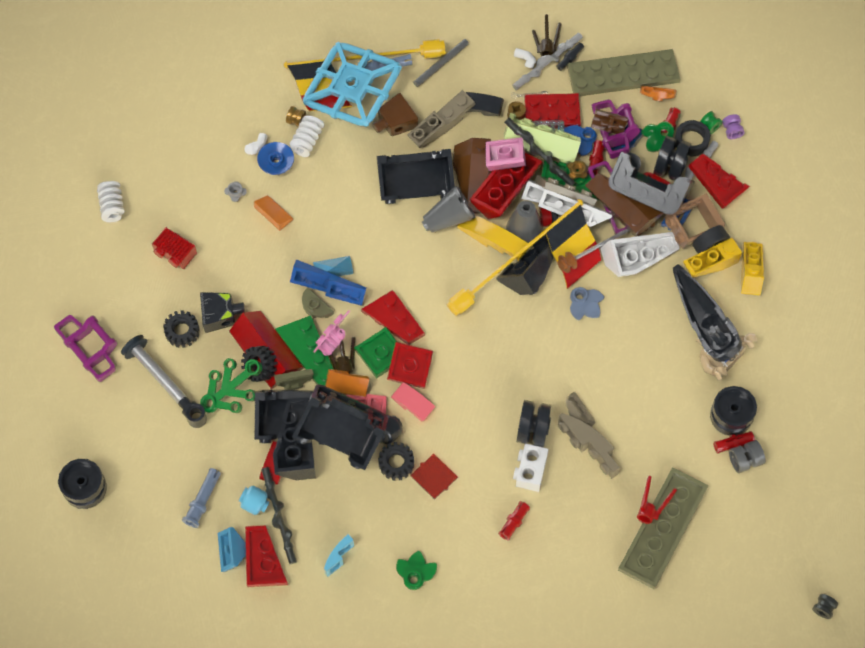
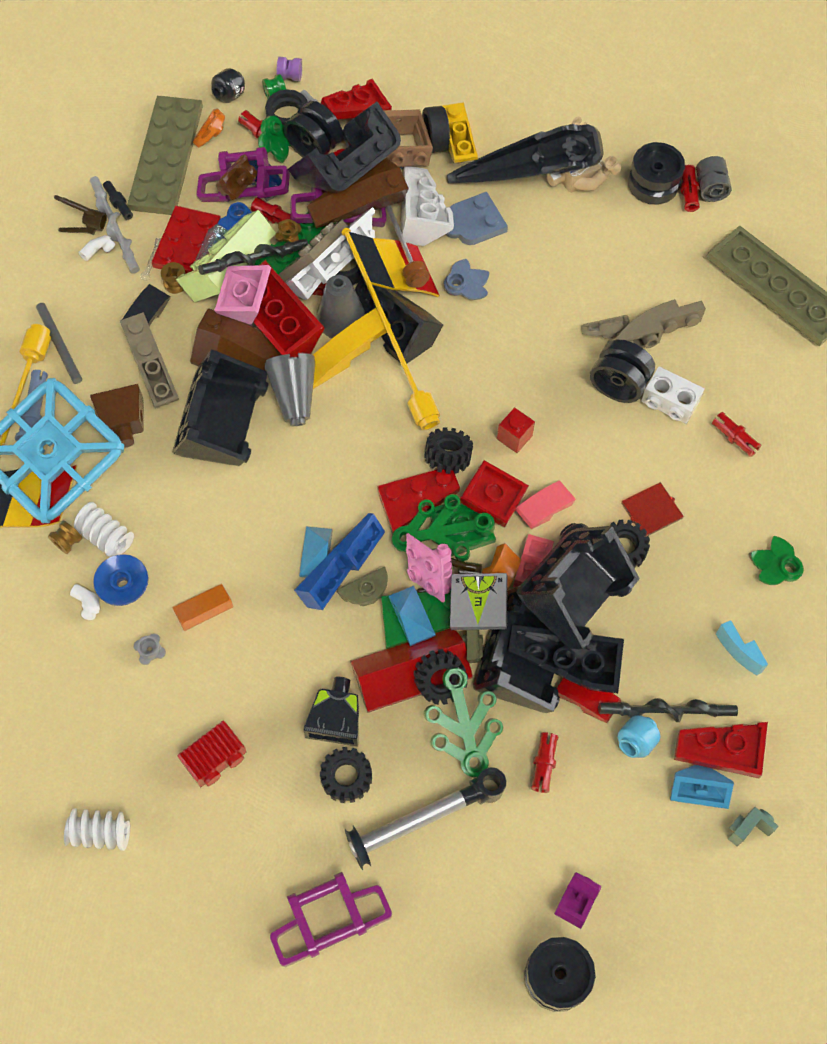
camera: 75 degrees left, 0 degrees up
(133, 486) = (578, 900): none -> magenta bracket
(197, 506) = (628, 815): sand blue pin -> none
(209, 581) = (743, 826): none -> sand green bracket
(221, 446) = (544, 762): none -> red pin
(298, 334) = (412, 615): none -> dark azure slope
(316, 369) = (478, 601): none -> light grey tile
(368, 336) = (439, 531): none -> green plant
(426, 332) = (457, 458): none -> black tyre
(464, 366) = (515, 430): none -> red brick
(644, 294) = (476, 220): none -> sand blue plate
(647, 510) = (764, 289): red plant -> none
(699, 91) = (228, 85): none -> black head
(752, 268) = (484, 107): yellow slope -> none

